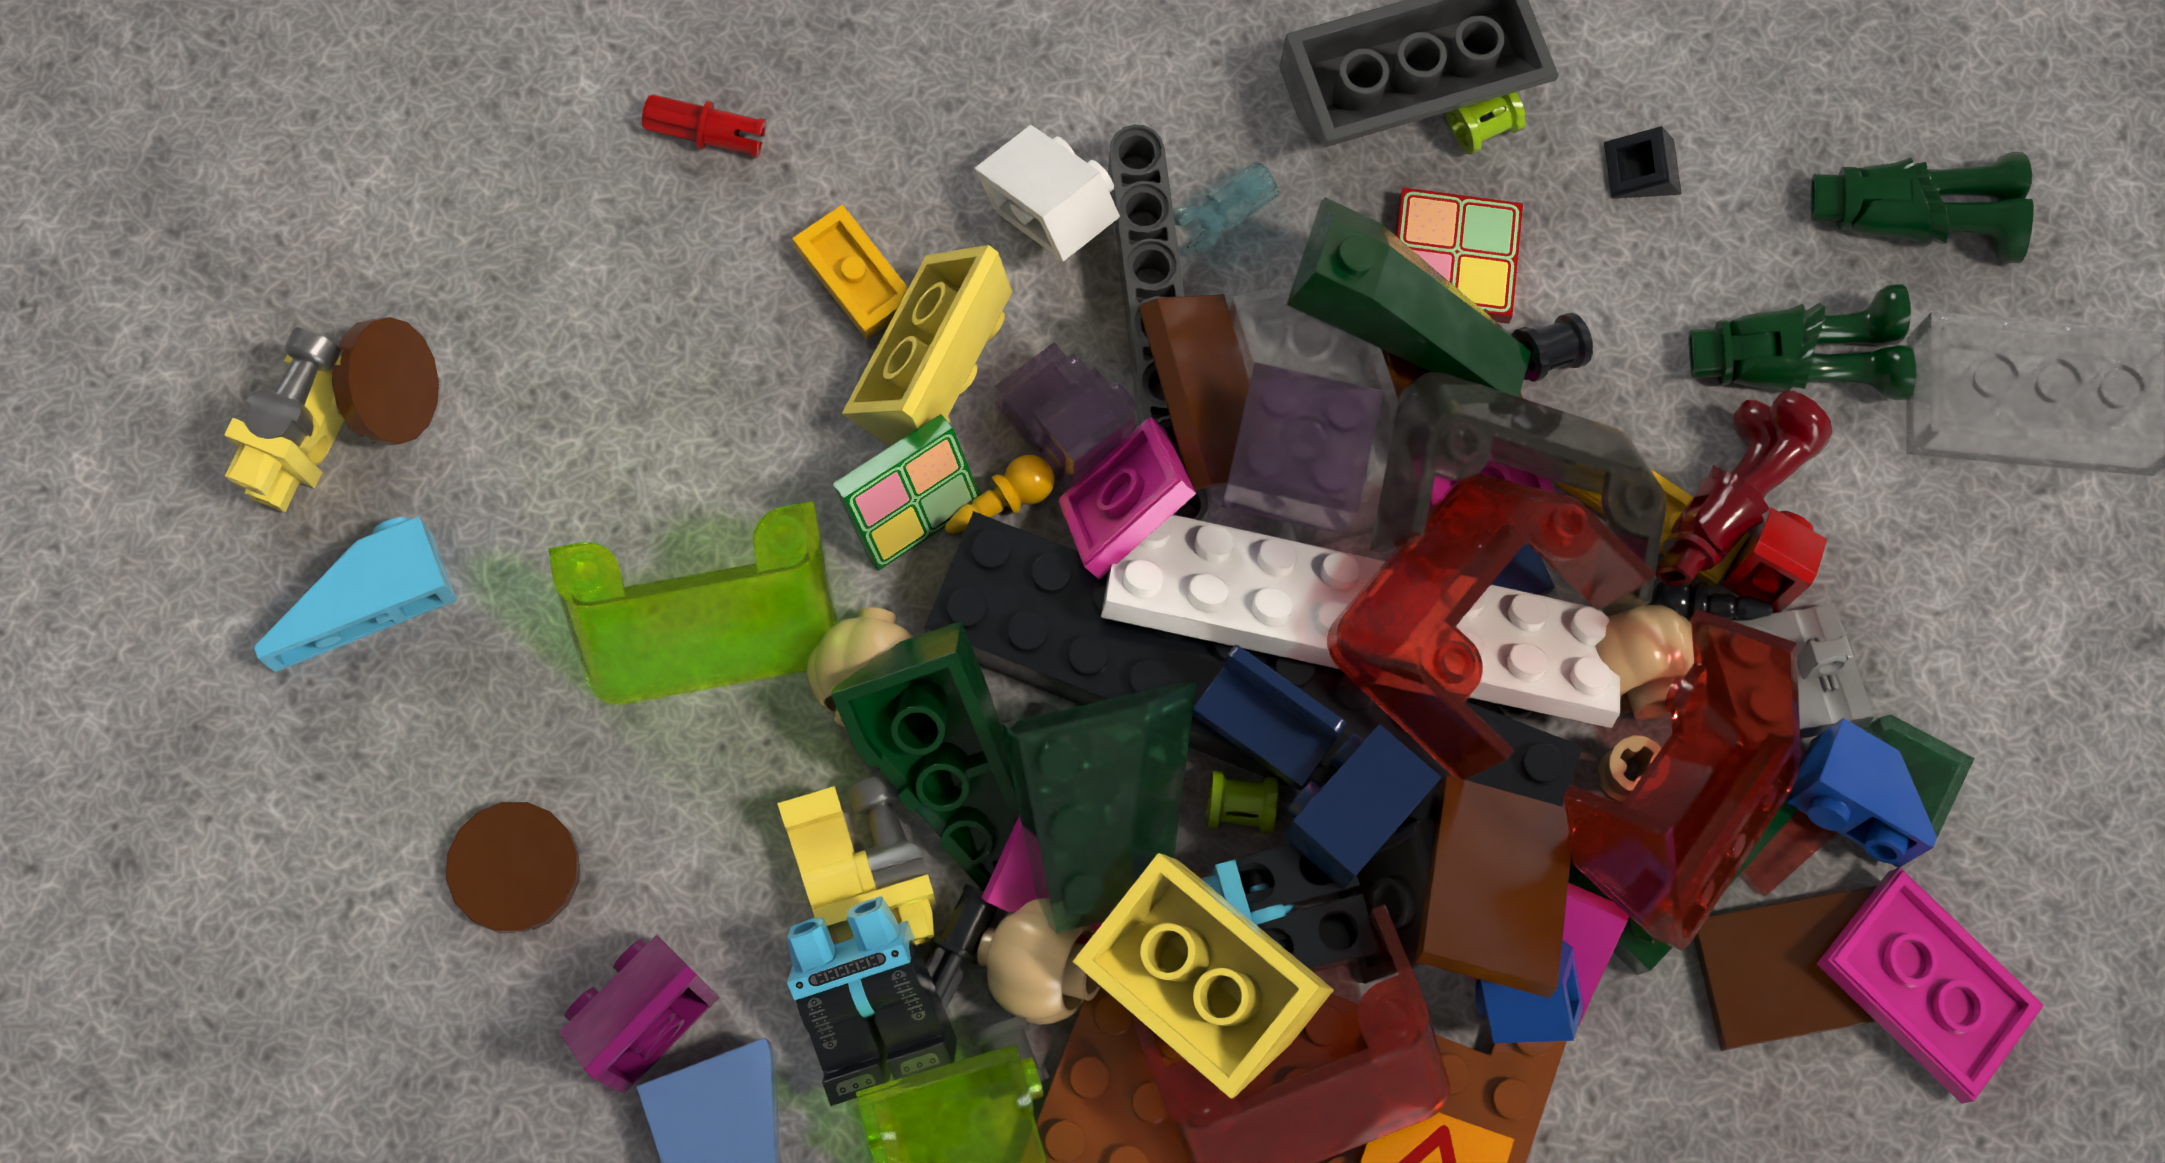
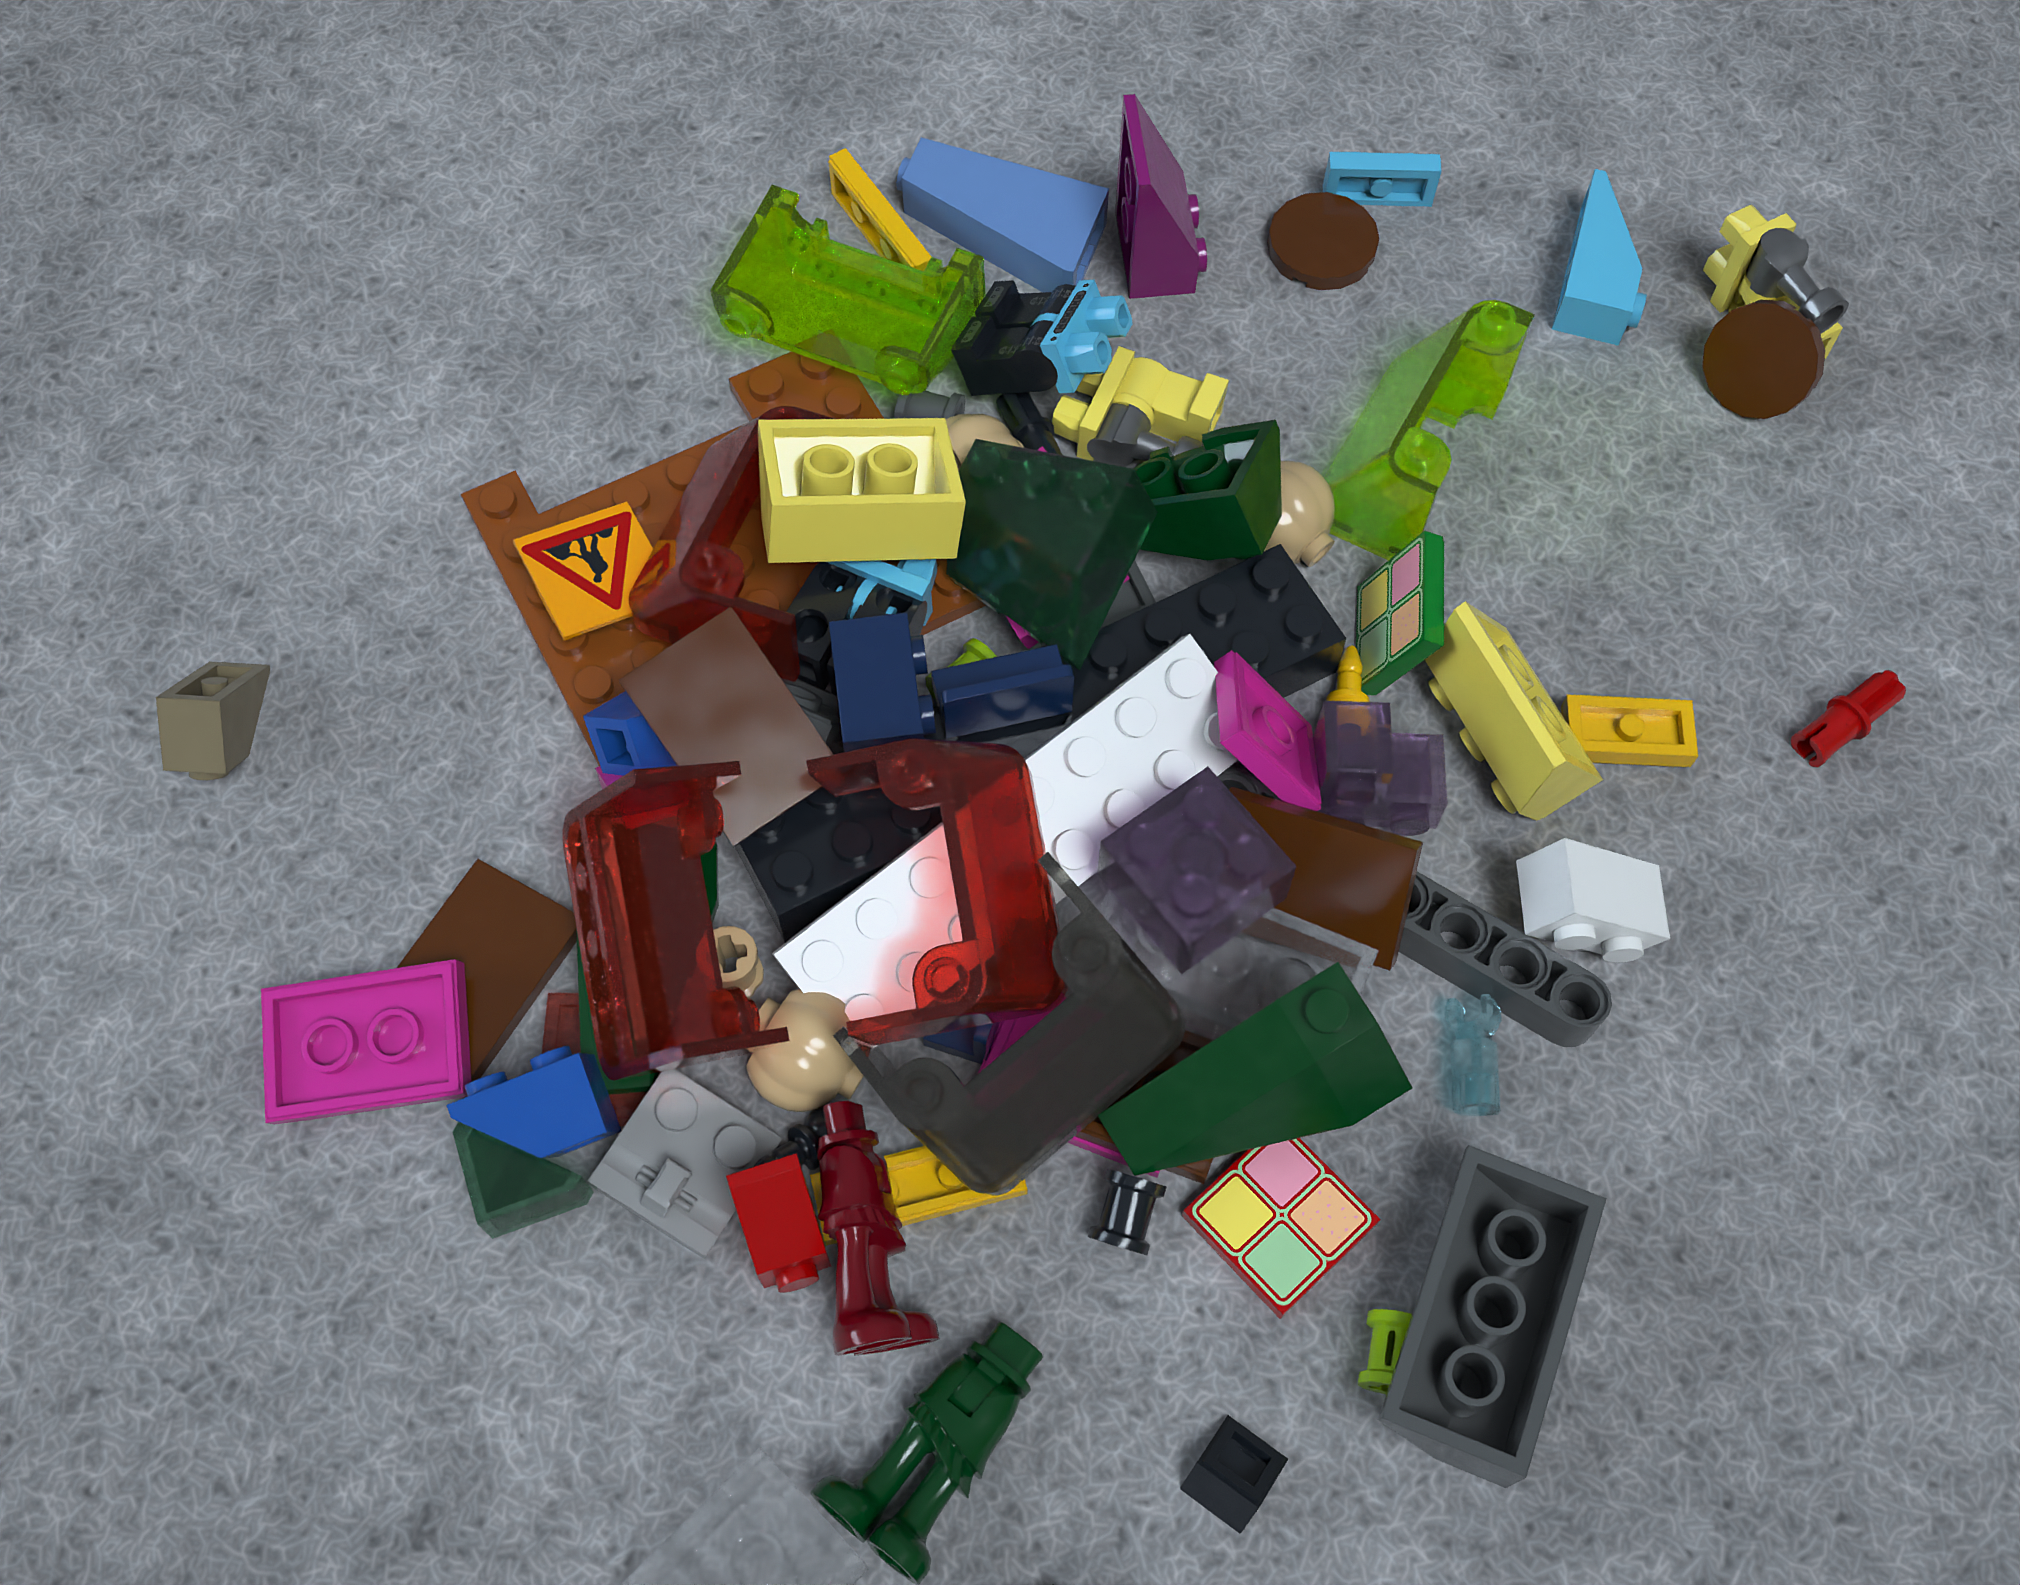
camera: 135 degrees right, 10 degrees down
(383, 839) = (1383, 177): none -> medium azure plate

